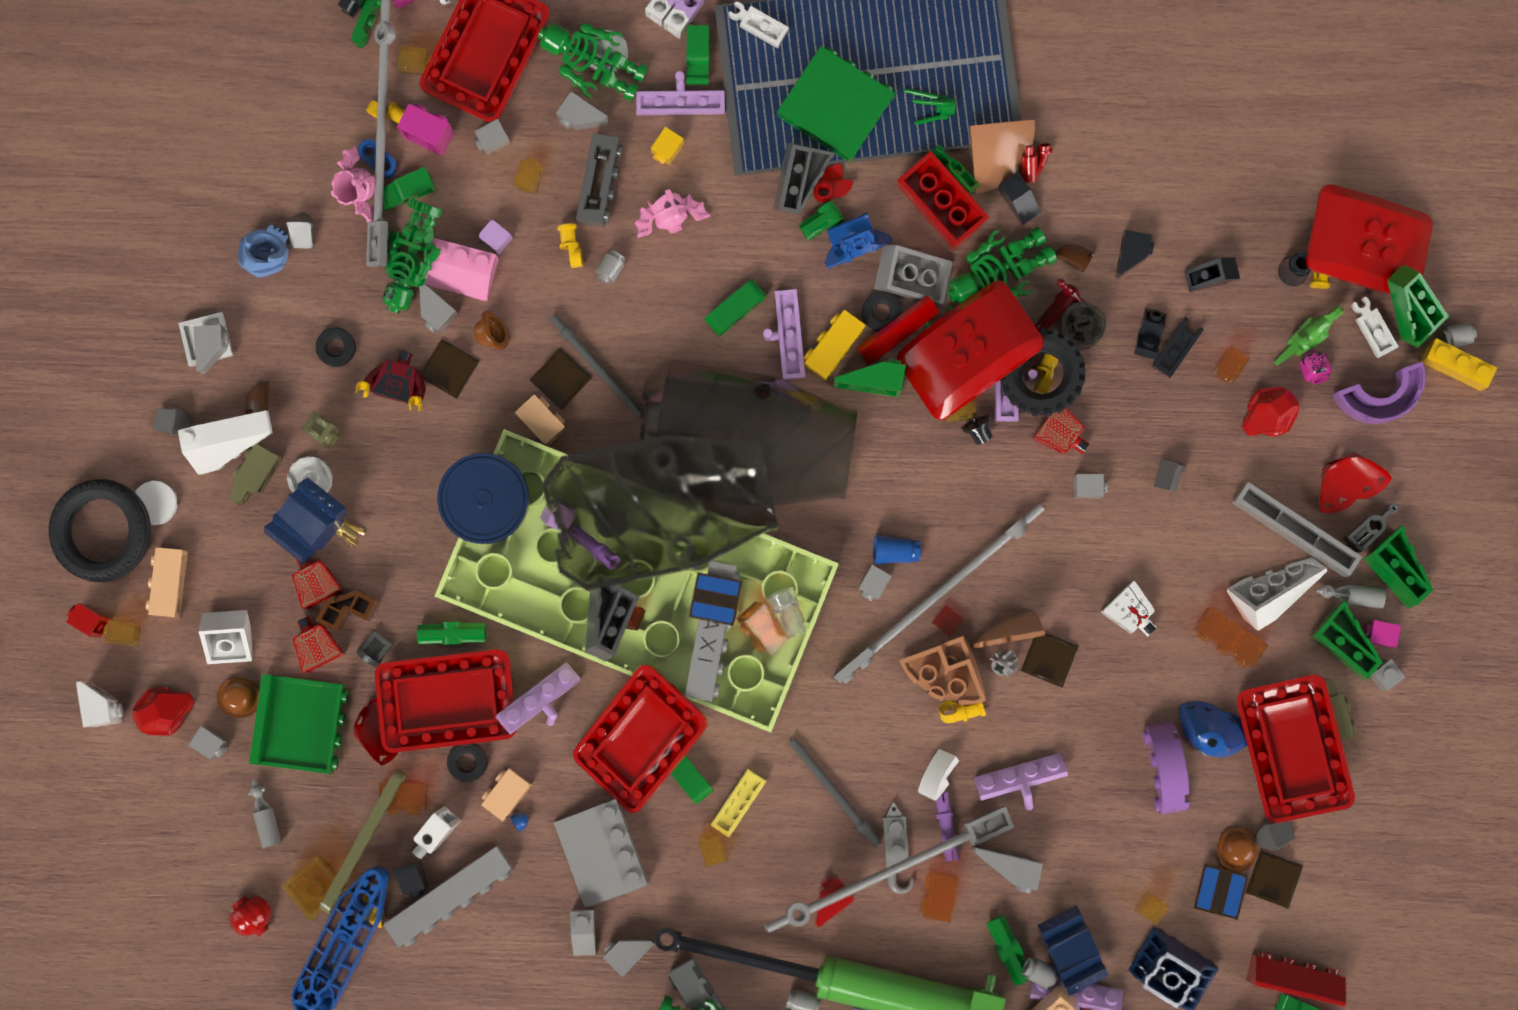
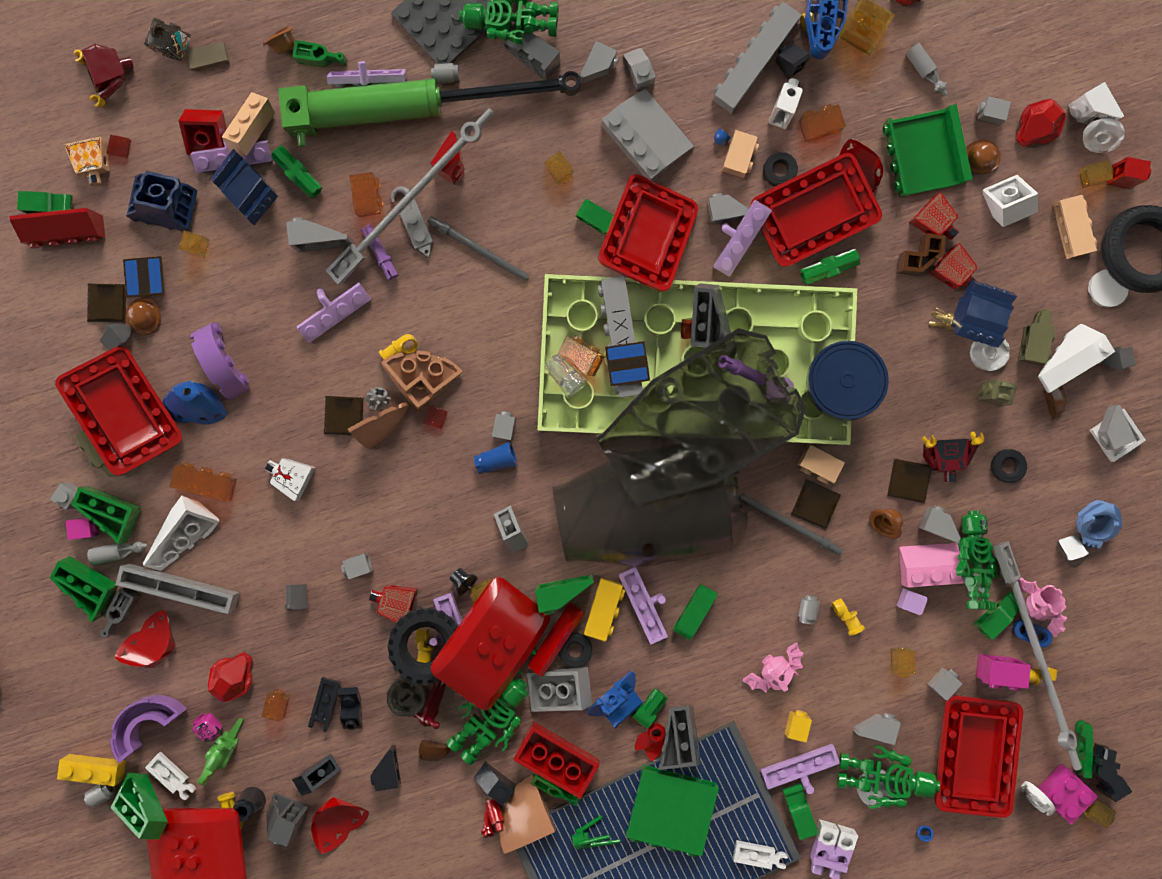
camera: 155 degrees right, 5 degrees up
(100, 671) = (1103, 135): none -> white tile
(362, 841) = (843, 71): olive beam -> none
(374, 649) = (887, 232): dark grey tile -> none
(412, 60) = (1034, 725): clear yellow brick -> none
(544, 739) = (725, 208): none -> light grey slope
(606, 145) = (840, 647): dark grey brick -> none
(738, 803) = (552, 212): light yellow plate -> none
(864, 659) = (491, 362): light grey bar -> none
(906, 467) = (511, 529): none -> light grey slope
(935, 776) = (401, 290): white slope -> none
(1040, 972) = (264, 160): light grey brick -> none
(1208, 220) = (335, 818): none -> red piece
(1261, 240) = (284, 819): none -> dark grey wedge

